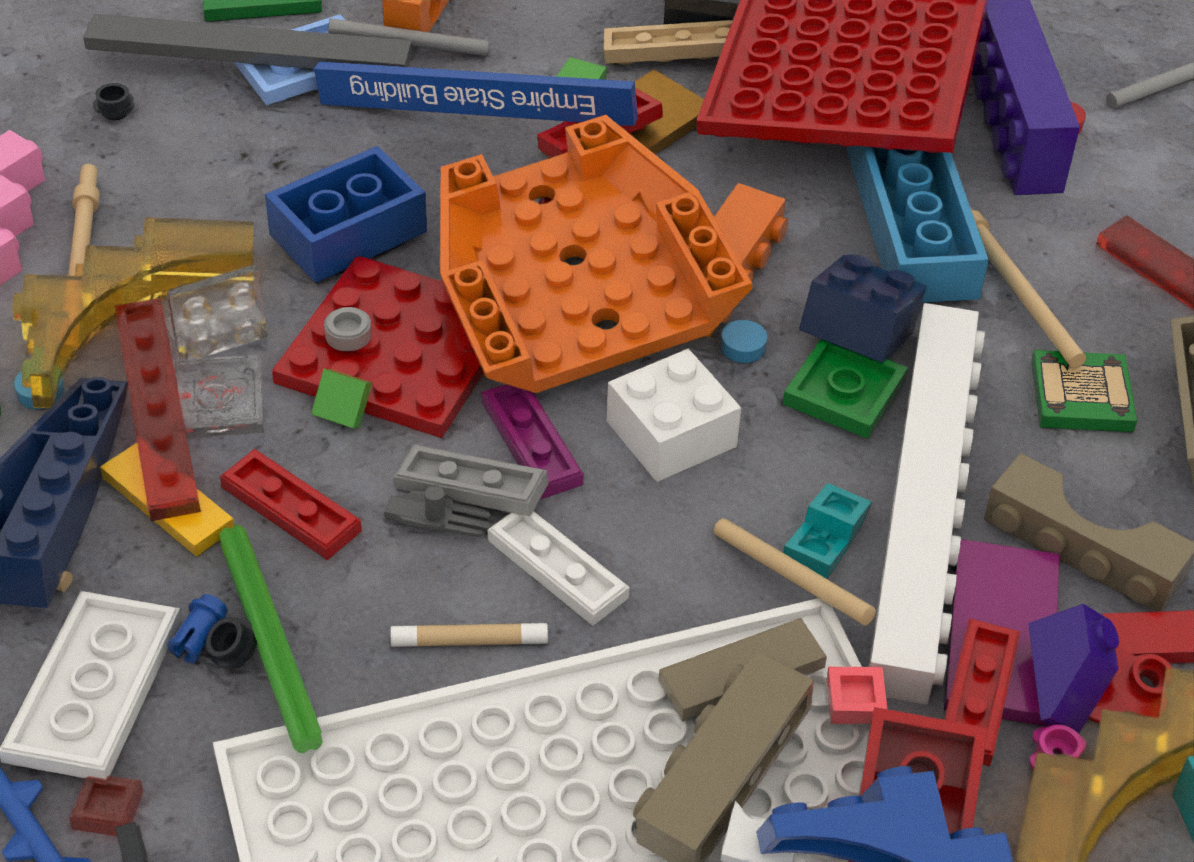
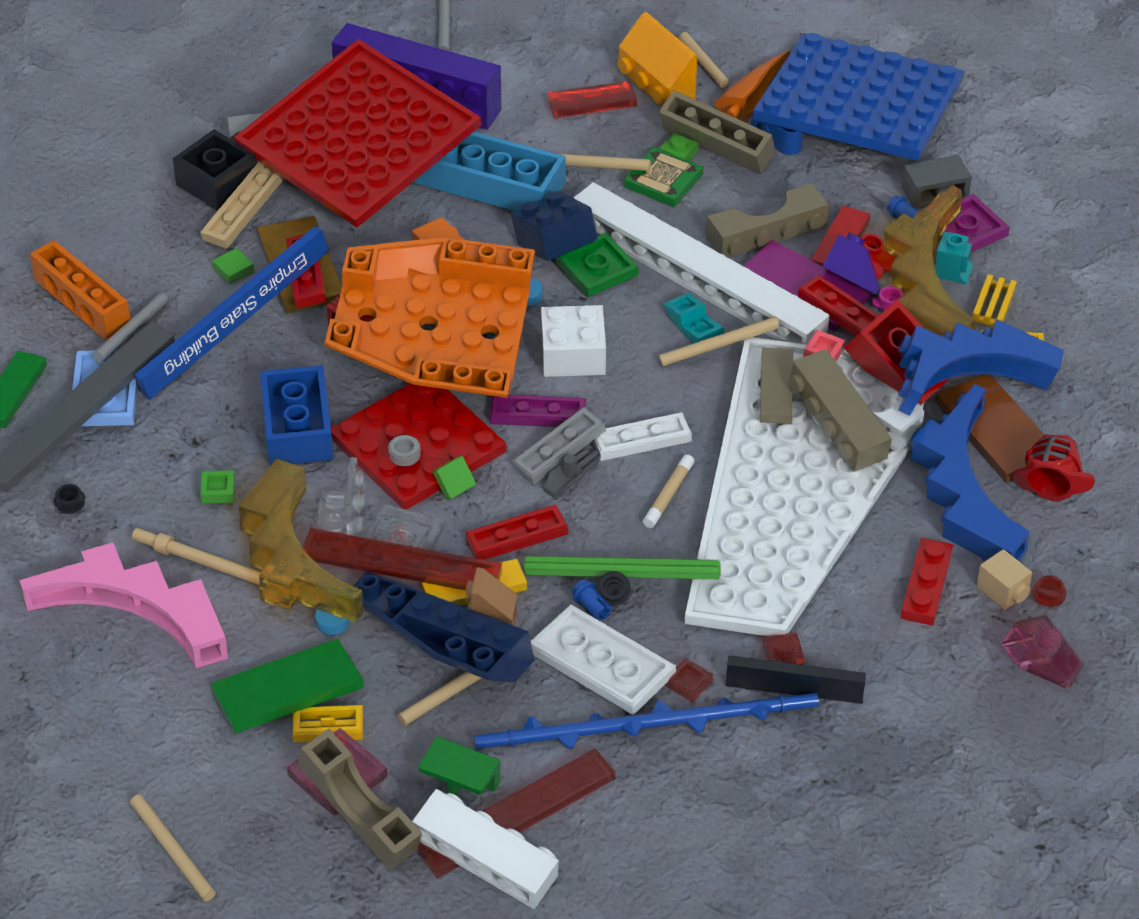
camera: 60 degrees left, 0 degrees up
(106, 517) = (492, 597): none -> medium nougat slope
(200, 201) = (217, 486): none -> bright green plate
(1154, 385) = (680, 146): none -> bright green plate

